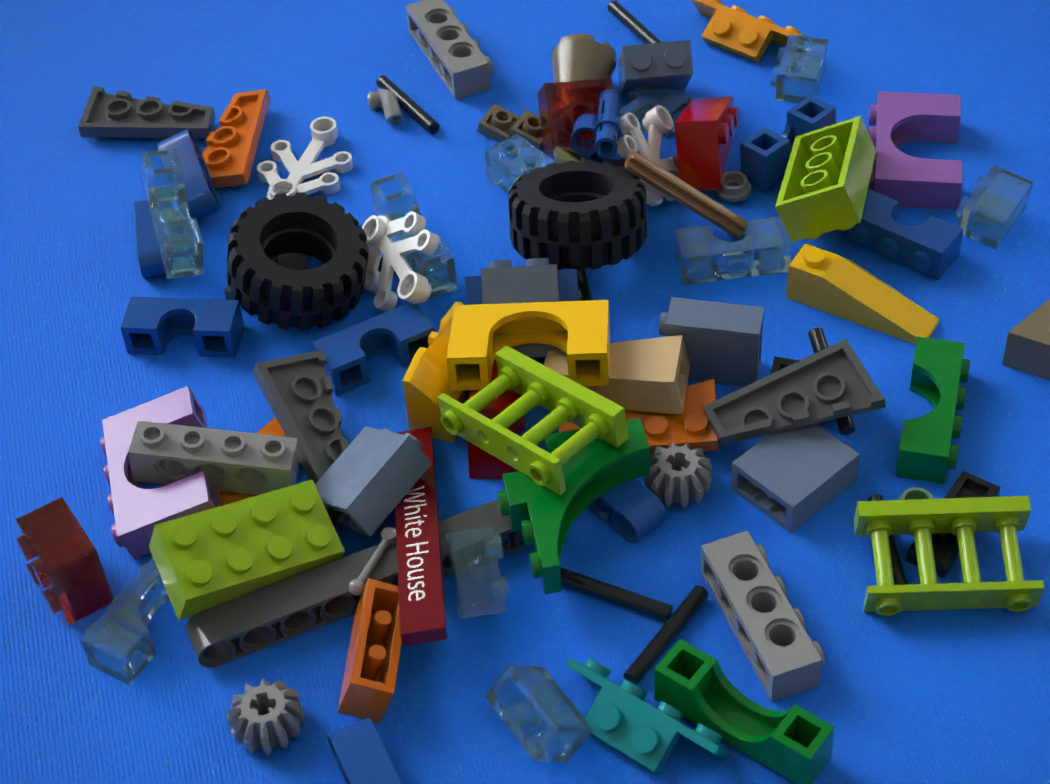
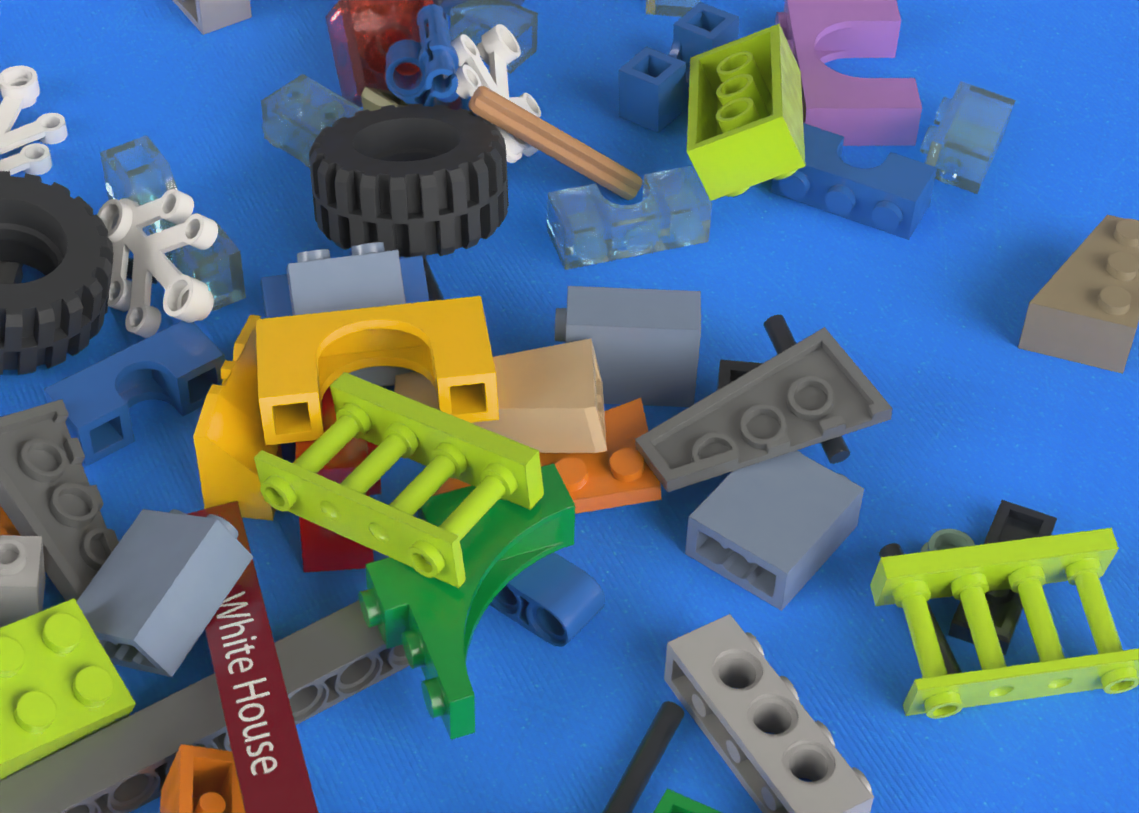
camera: 15 degrees left, 0 degrees up
(386, 101) = (106, 41): light grey arm -> none
(388, 538) = (201, 675): light grey hinge -> none
(409, 105) = (136, 44): black bar -> none
(476, 572) = (344, 716): clear light blue brick -> none
(503, 124) = (277, 65): dark tan slope -> none
(615, 594) = (554, 728): black bar -> none
(679, 474) = (614, 540): light grey gear -> none
(704, 141) = (566, 68): red wedge -> none
(734, 187) = (612, 131): light grey plate -> none
(855, 294) = (795, 263): yellow wedge -> none
(926, 440) = (948, 463): green arch -> none

